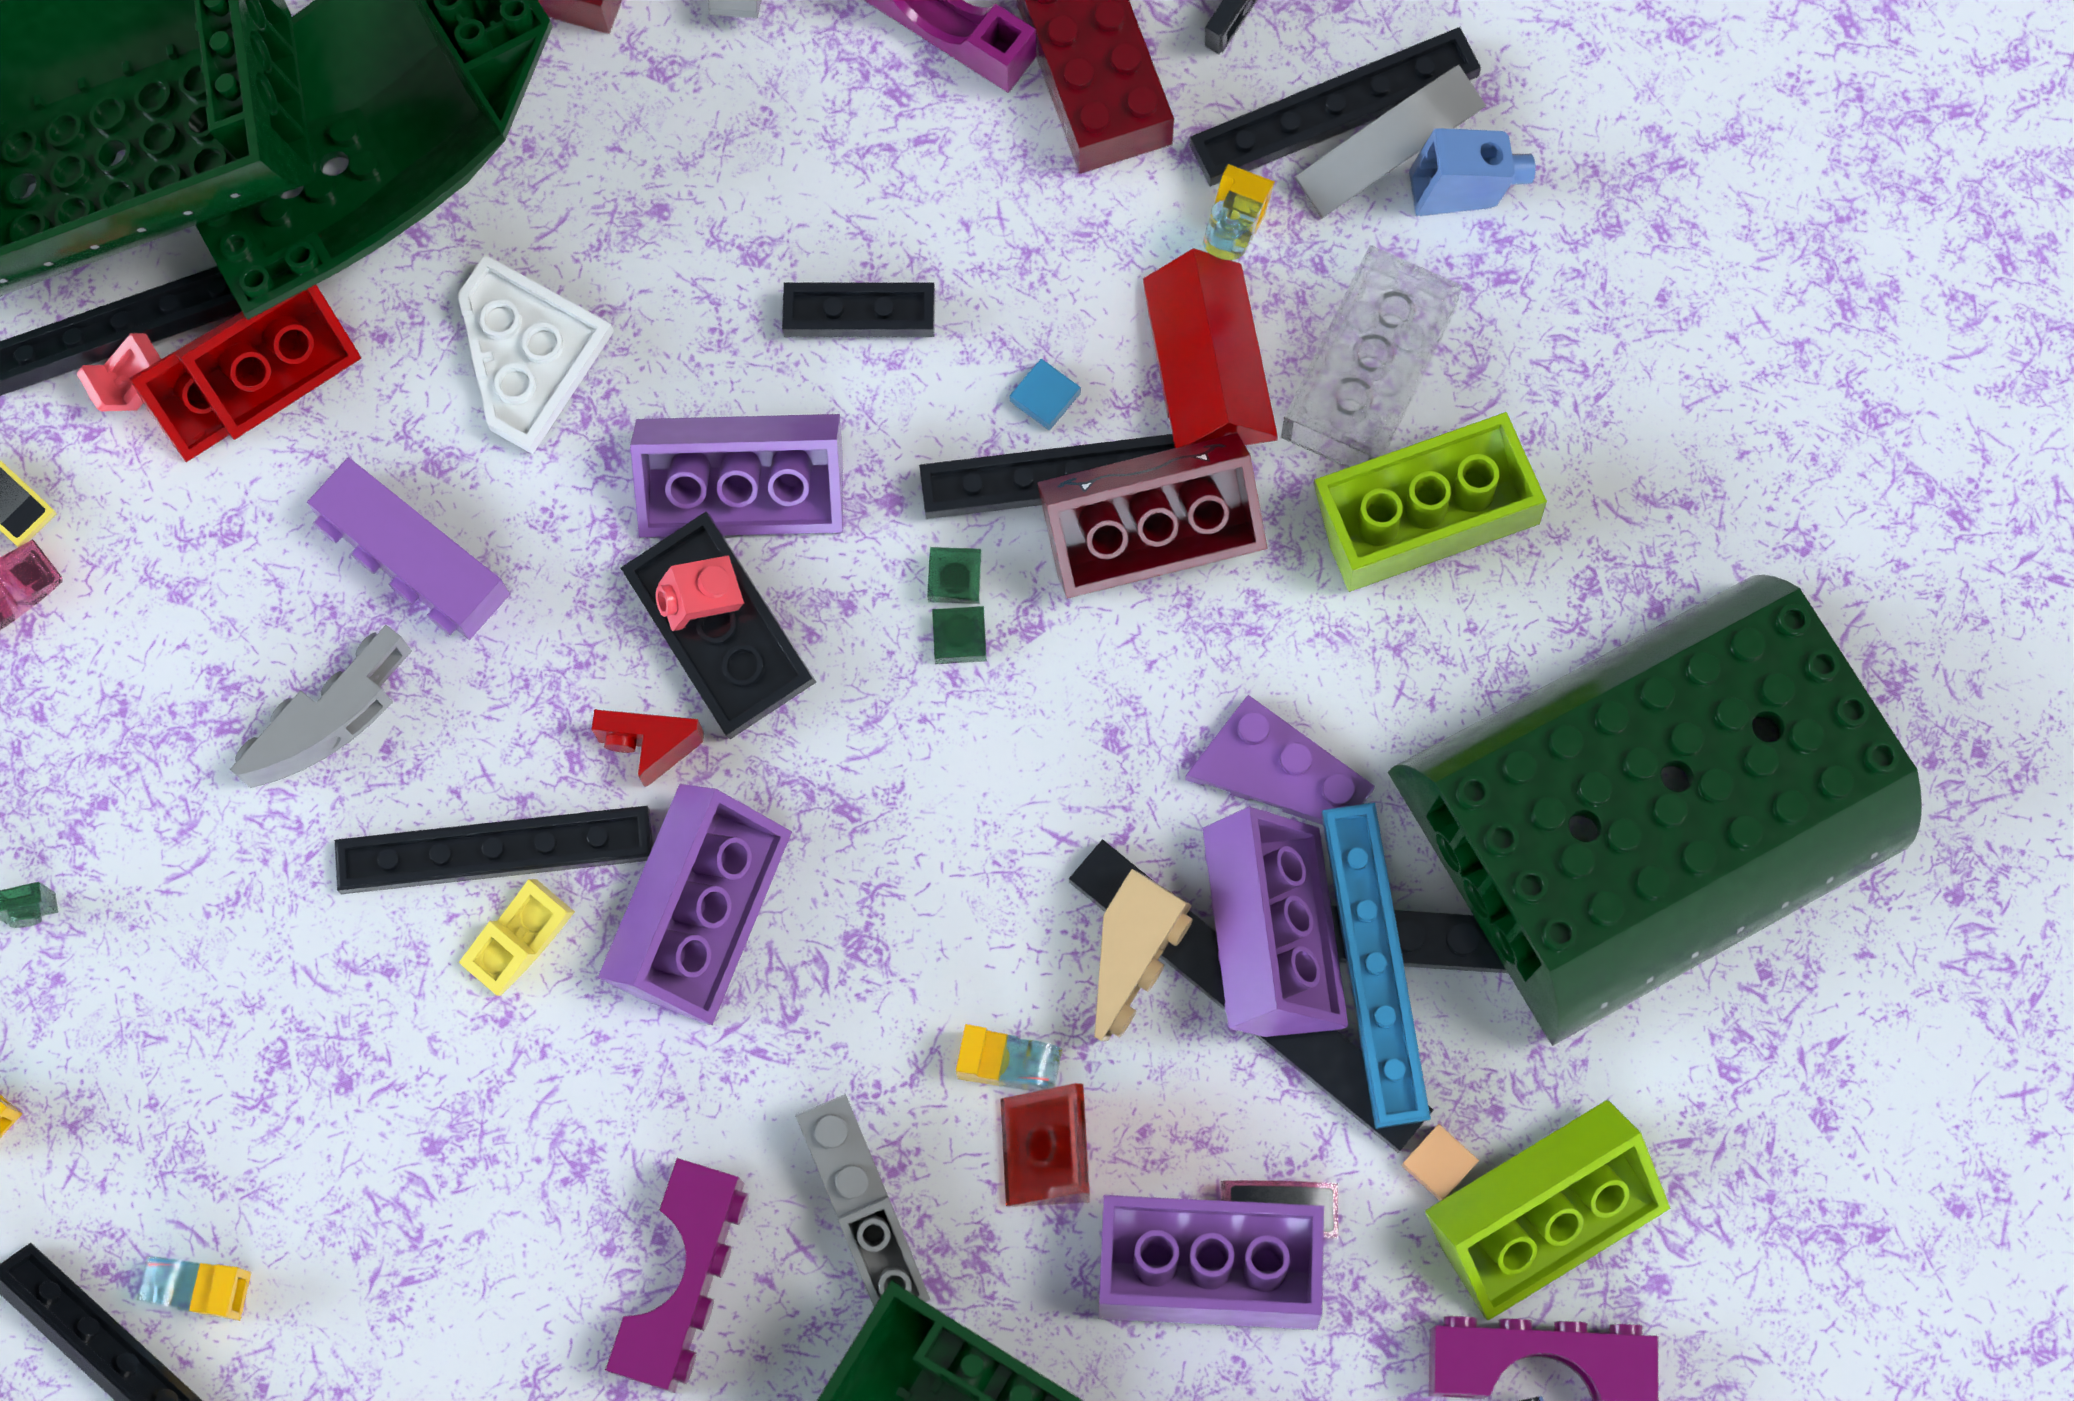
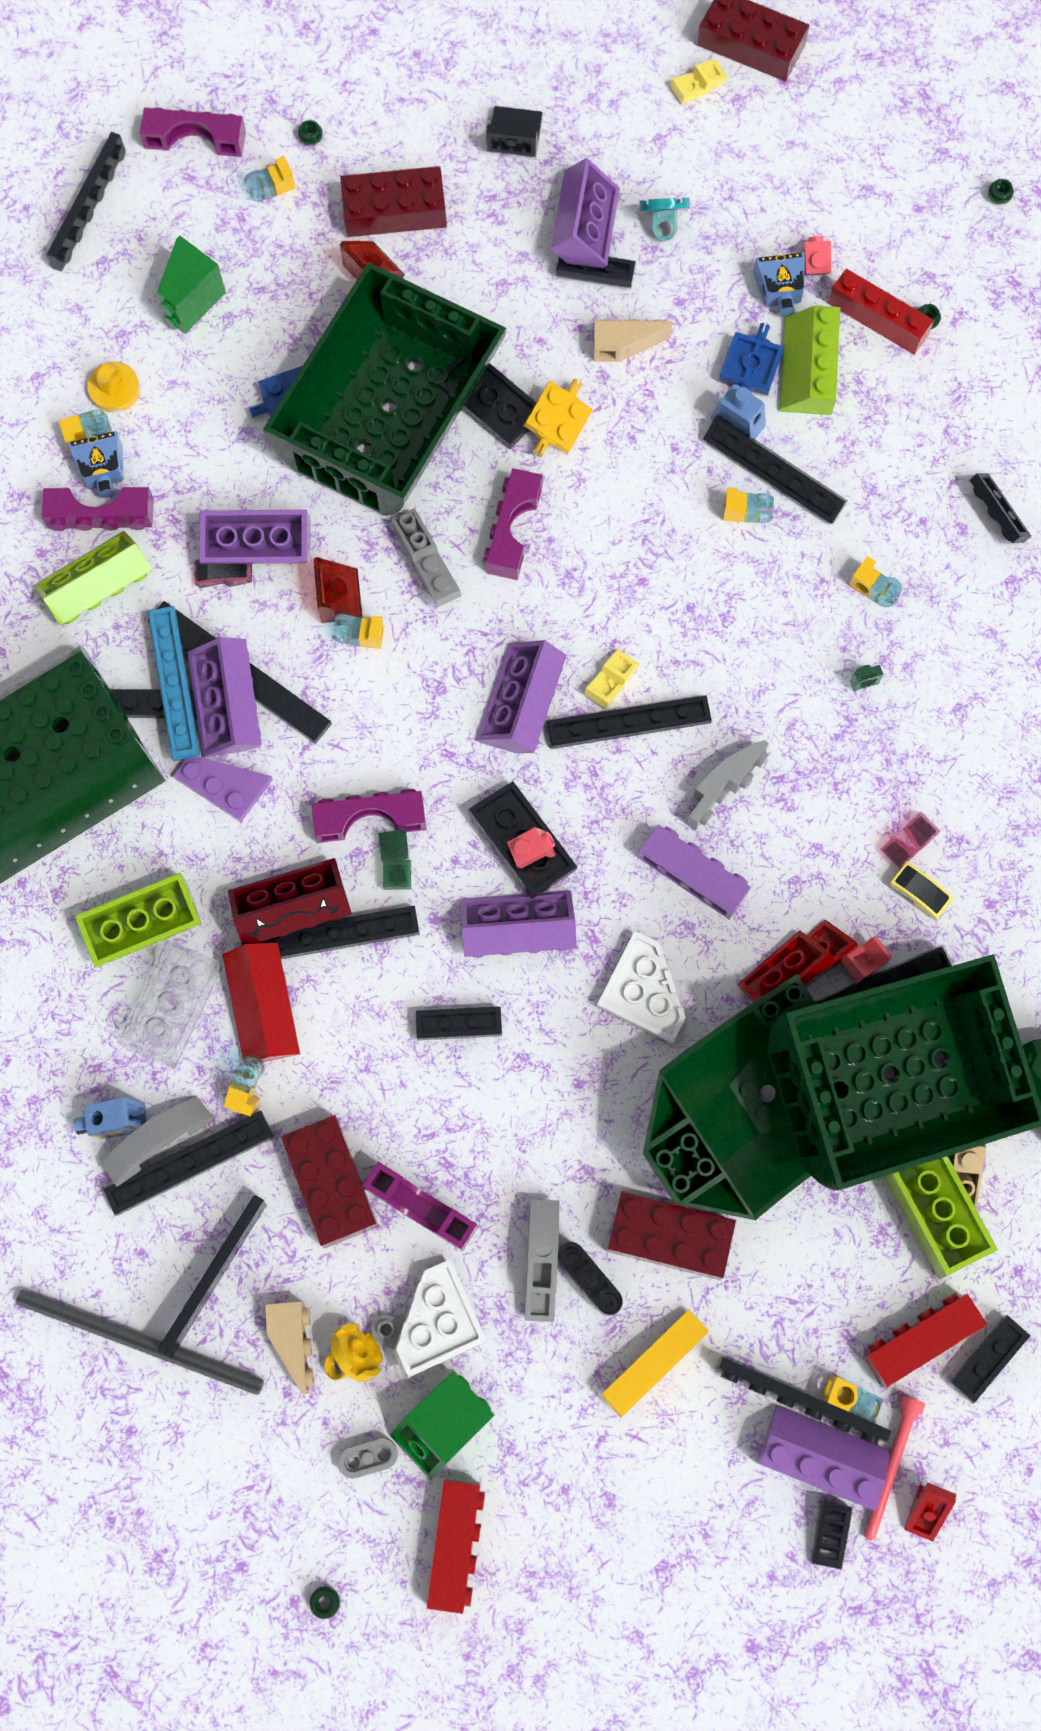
camera: 175 degrees right, 0 degrees up
(662, 739) = (546, 779): red slope -> none
(938, 693) = (334, 818): none -> magenta arch
(1045, 394) = (352, 981): dark azure tile -> none
(1133, 939) = (292, 690): tan slope -> none
(1440, 1162) = (144, 598): light nougat tile -> none

